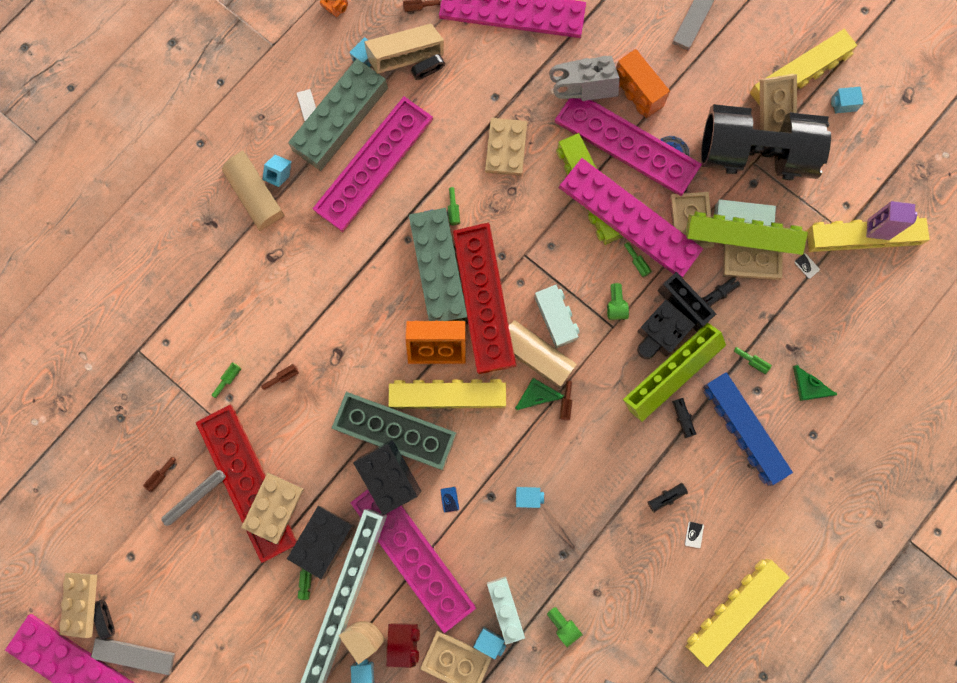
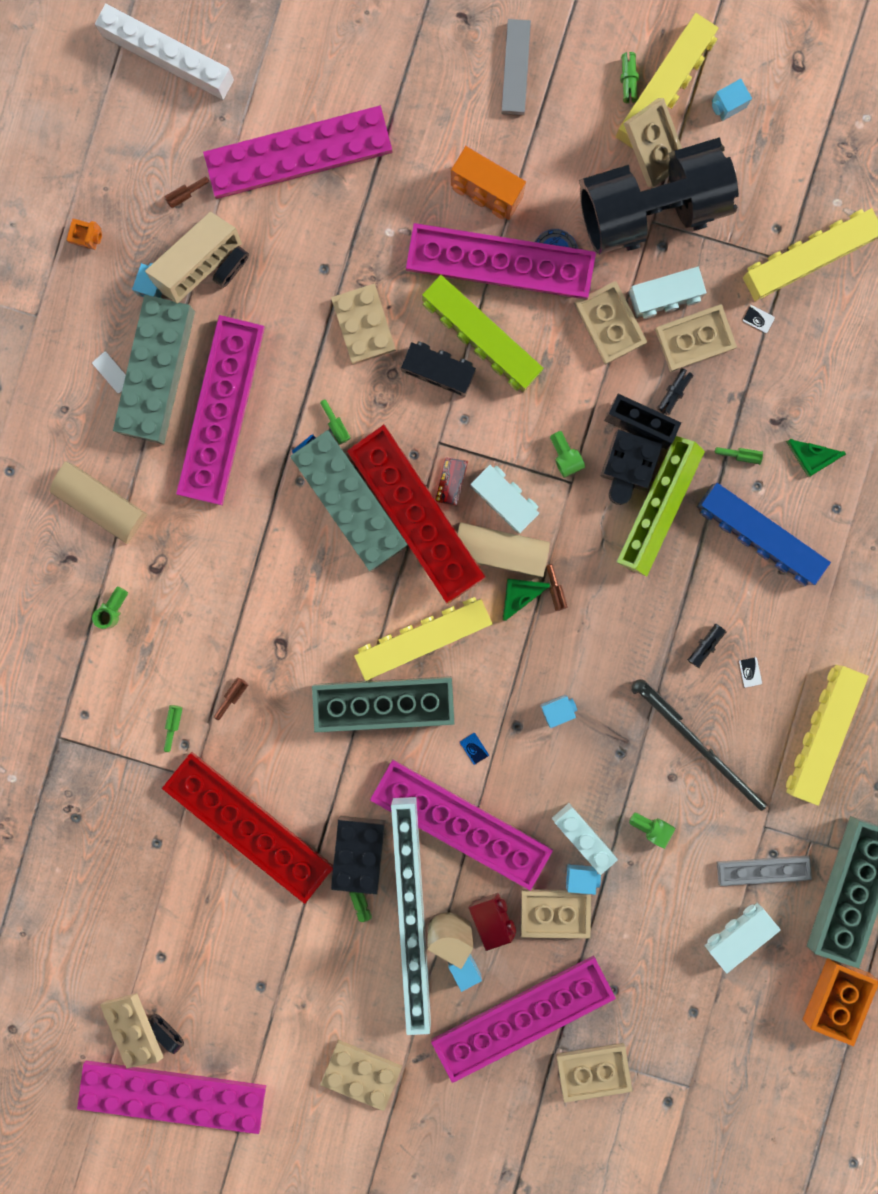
camera: 25 degrees left, 10 degrees up
(133, 656) = (215, 1055): light grey tile -> none
(156, 478) = (149, 862): copper axle -> none
(193, 497) = (198, 868): light grey axle -> none
(224, 271) = (111, 607): none -> bright green axle
(272, 508) = (290, 842): tan plate -> none
(276, 170) = (115, 467): medium azure brick -> none
(387, 477) = (399, 758): black brick -> none
(436, 342) = (385, 587): orange brick -> none
(521, 287) = (451, 481): none -> slope
(547, 200) = (438, 368): none -> black brick
(587, 79) = (422, 204): light grey brick -> none
(618, 544) = (673, 717): none -> pearl dark grey bar
(630, 218) = (541, 351): dark pink plate -> none
(638, 261) = (570, 395): bright green axle -> none
(684, 417) = (690, 551): black pin -> none
(746, 234) = (678, 315): lime brick -> none
(777, 54) = (629, 77): none -> bright green pin
(891, 220) = (836, 234): medium lavender brick -> none

